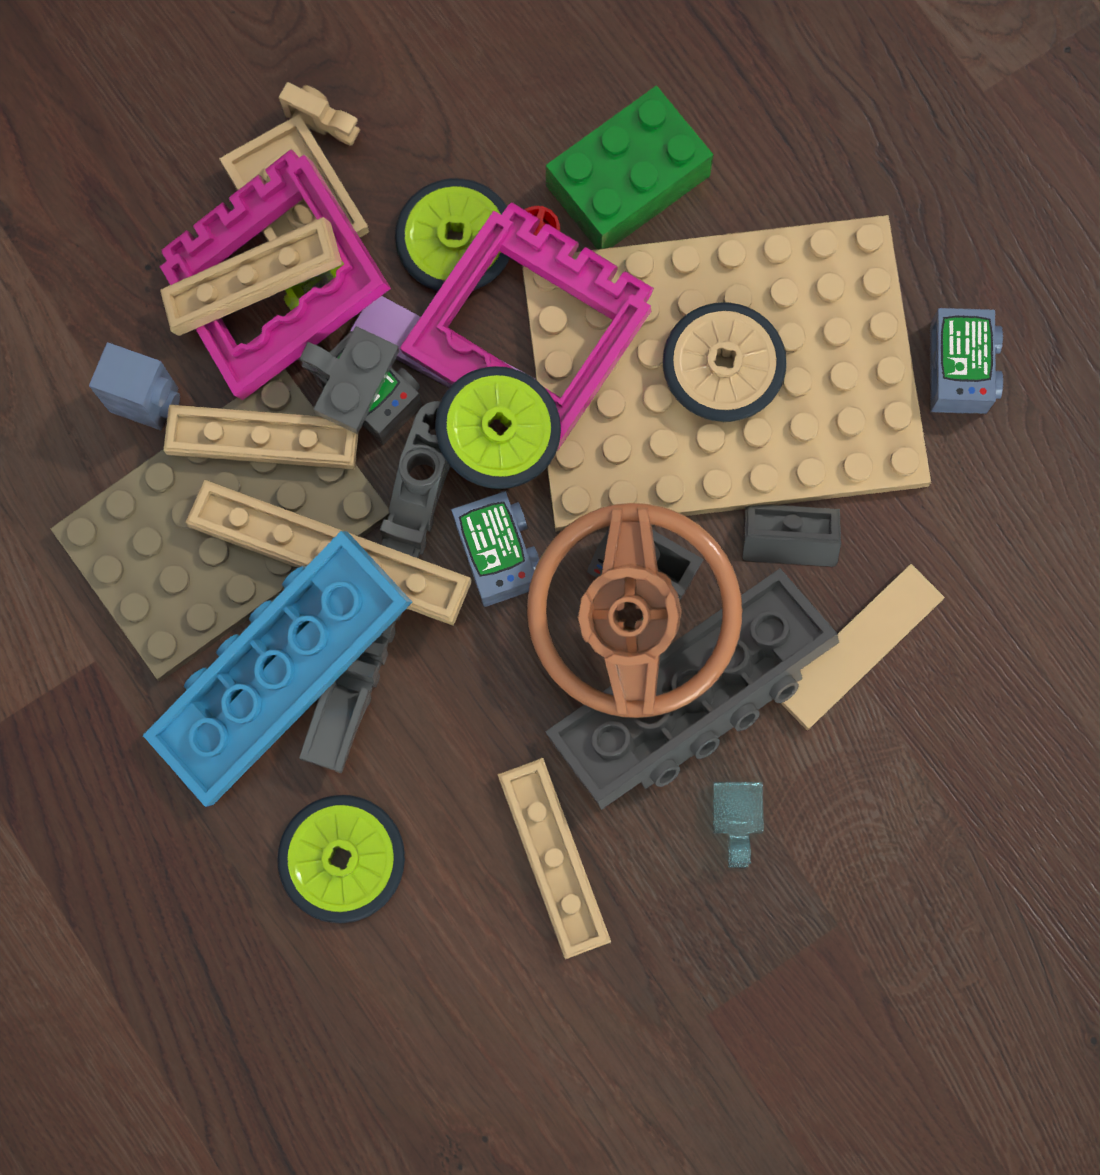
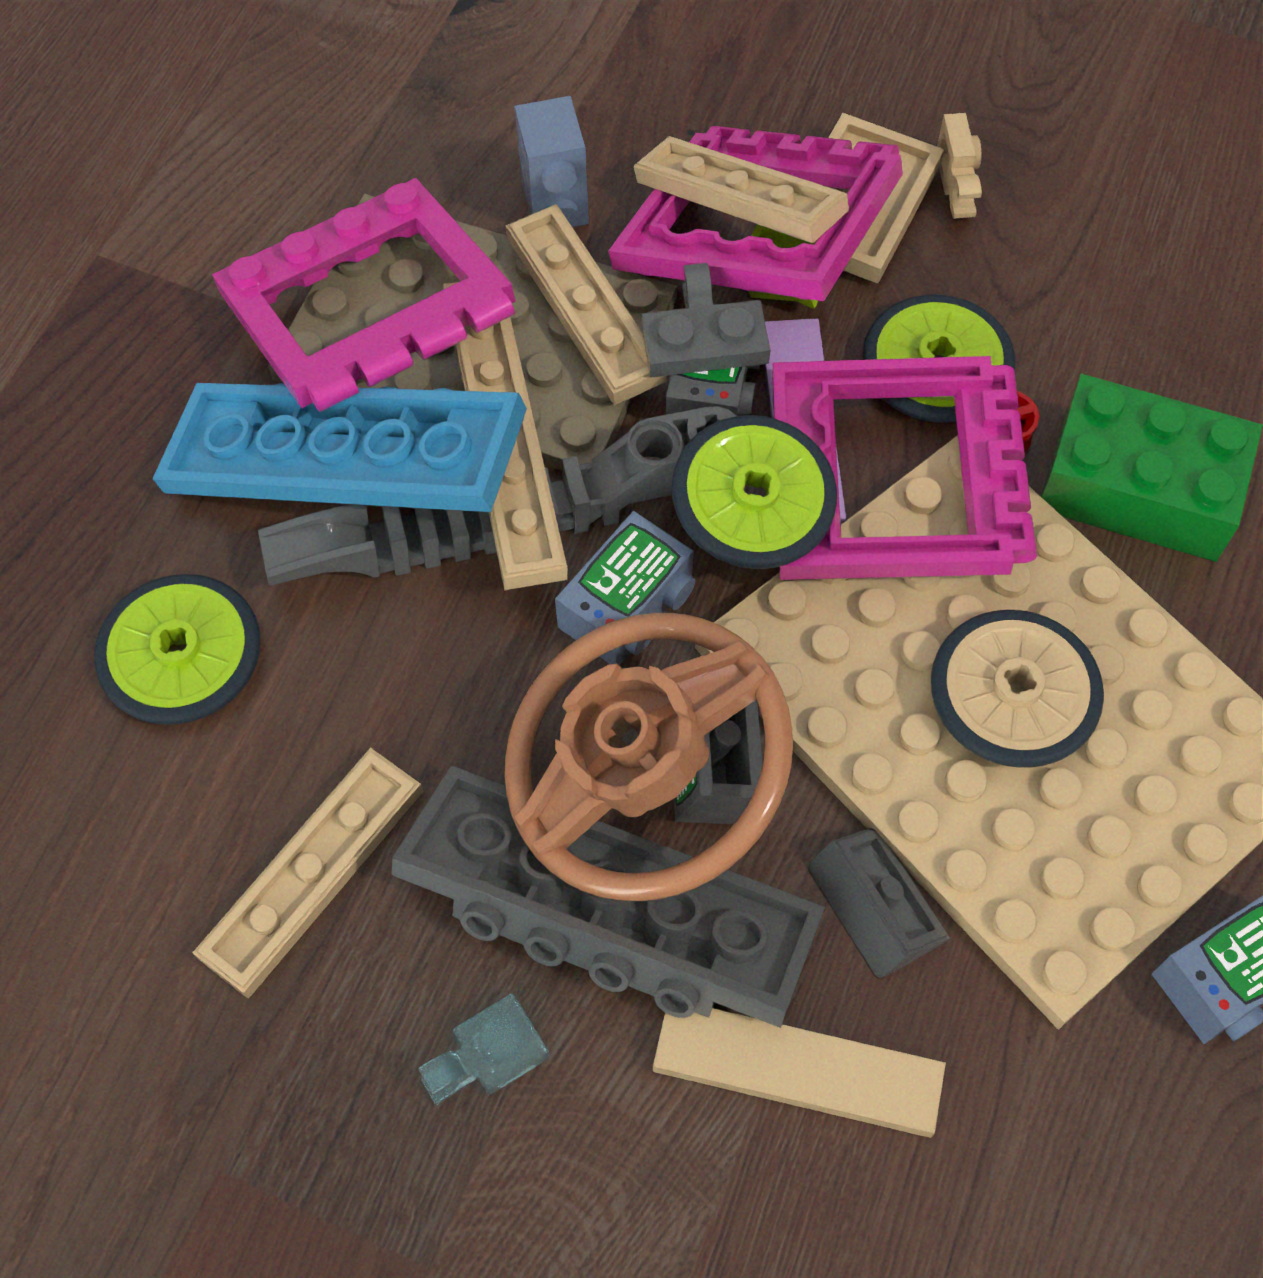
camera: 55 degrees right, 15 degrees down
(226, 598) = (384, 347): none -> dark pink hinge

